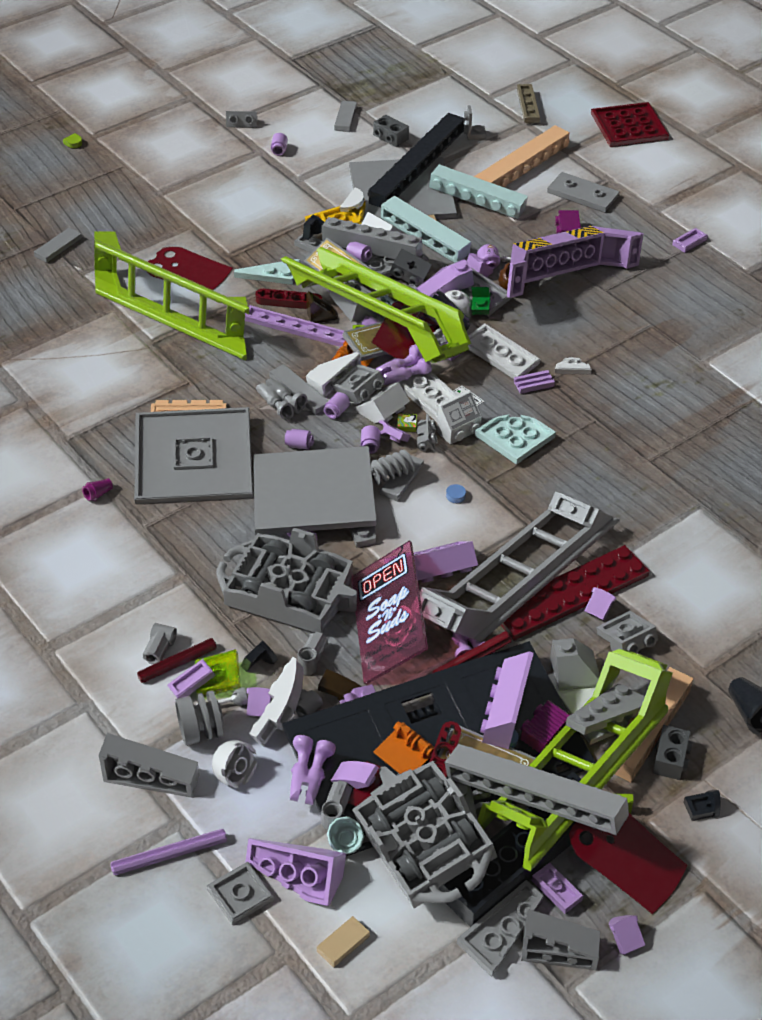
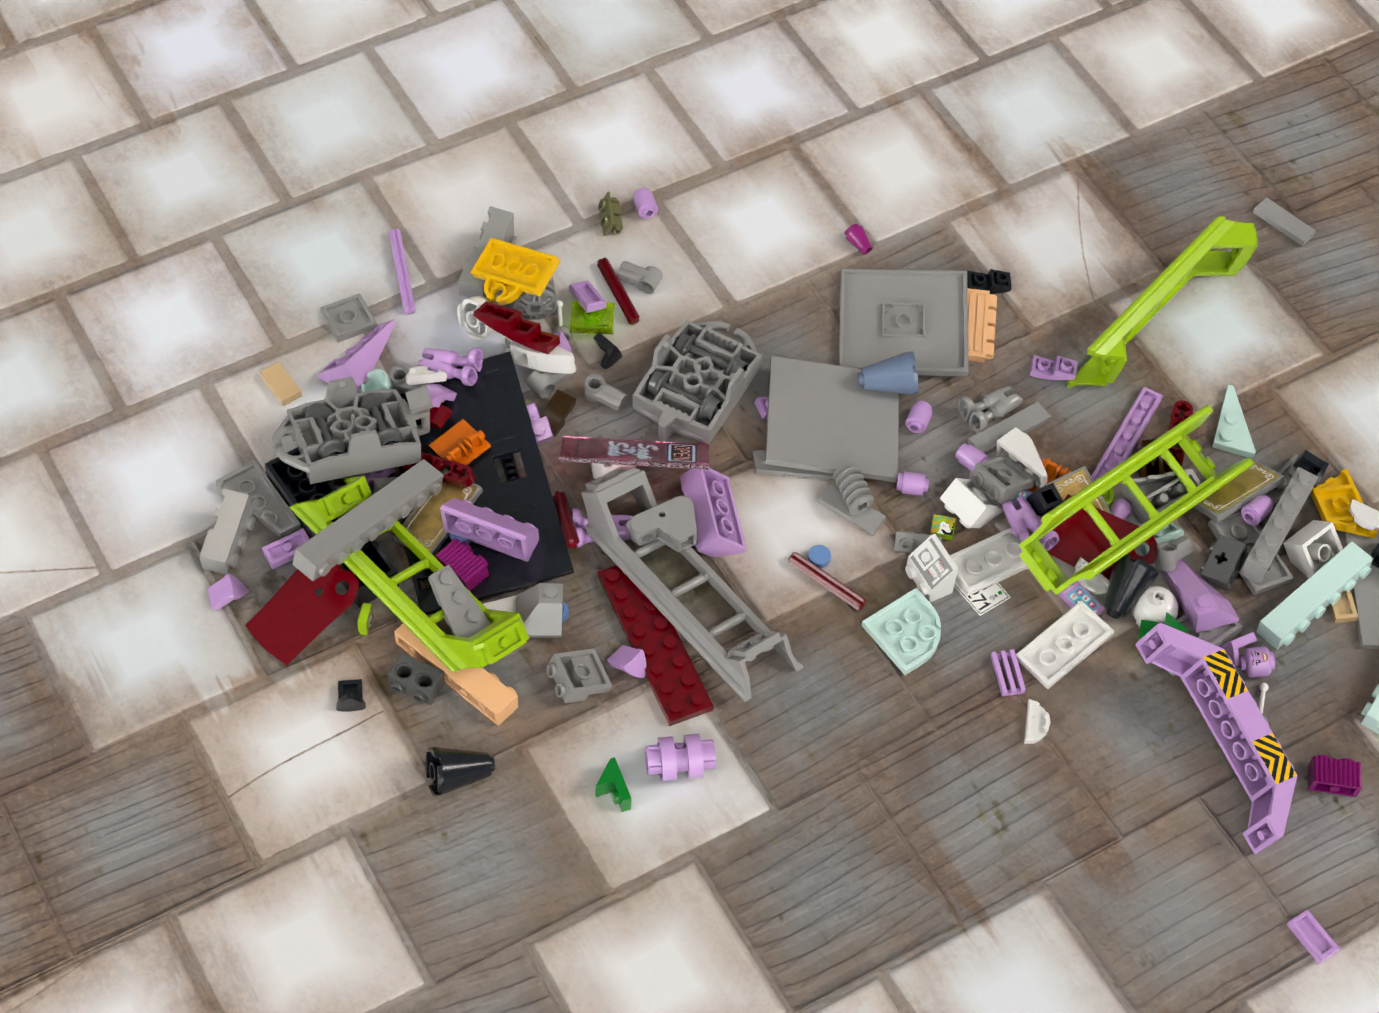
camera: 95 degrees right, 10 degrees up
(61, 648) = (645, 203): none -> lavender brick
(77, 678) = (609, 208): none -> olive hinge
(138, 403) = (994, 281): none -> black slope
(190, 718) = (513, 271): none -> yellow plate
(192, 267) = (1233, 352): dark red piece -> none
(231, 364) = (1048, 369): none -> lavender slope
(264, 709) = (511, 325): none -> dark red slope
(266, 444) = (891, 375): none -> sand blue cone
(333, 786) = (422, 375): none -> white tile
(378, 354) = (1044, 499): none -> black brick
(378, 770) = (419, 400): none -> light grey tile
(396, 434) = (920, 508): lavender plate -> none
(465, 575) = (669, 522): none -> light grey piece
(478, 488) = (827, 581): none -> axle
(687, 554) = (689, 756): none -> lavender piece
(723, 598) = (613, 782): none -> green slope

